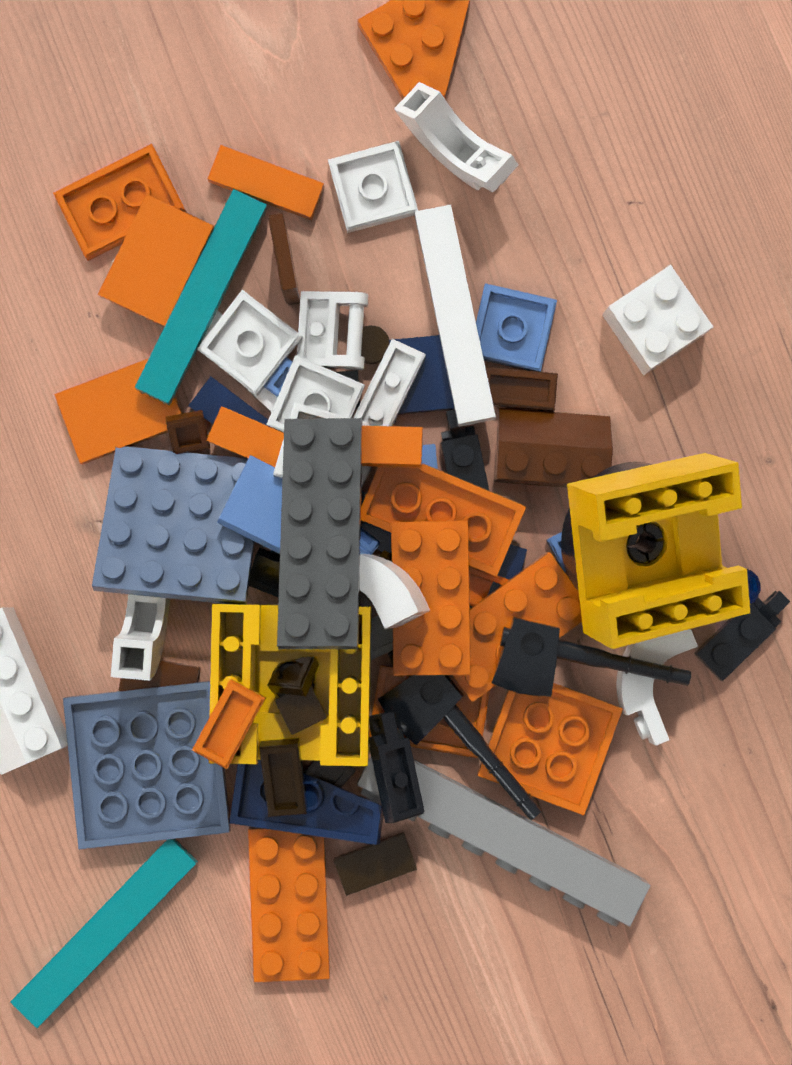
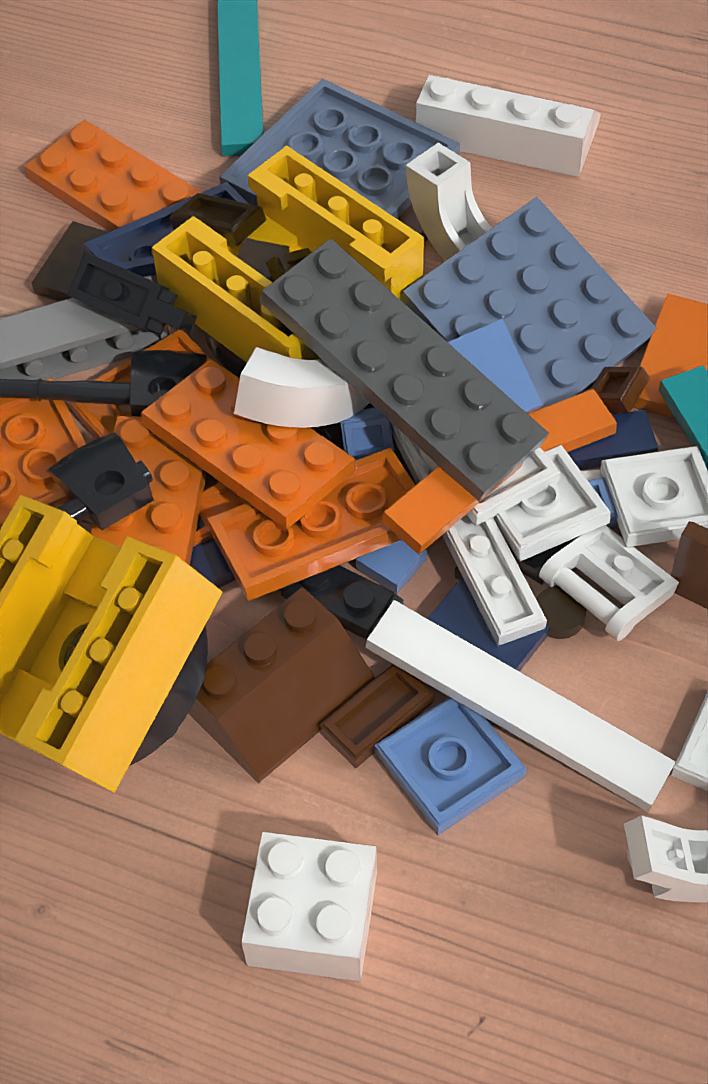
camera: 135 degrees right, 30 degrees down
(228, 723) = (303, 175): orange tile -> none

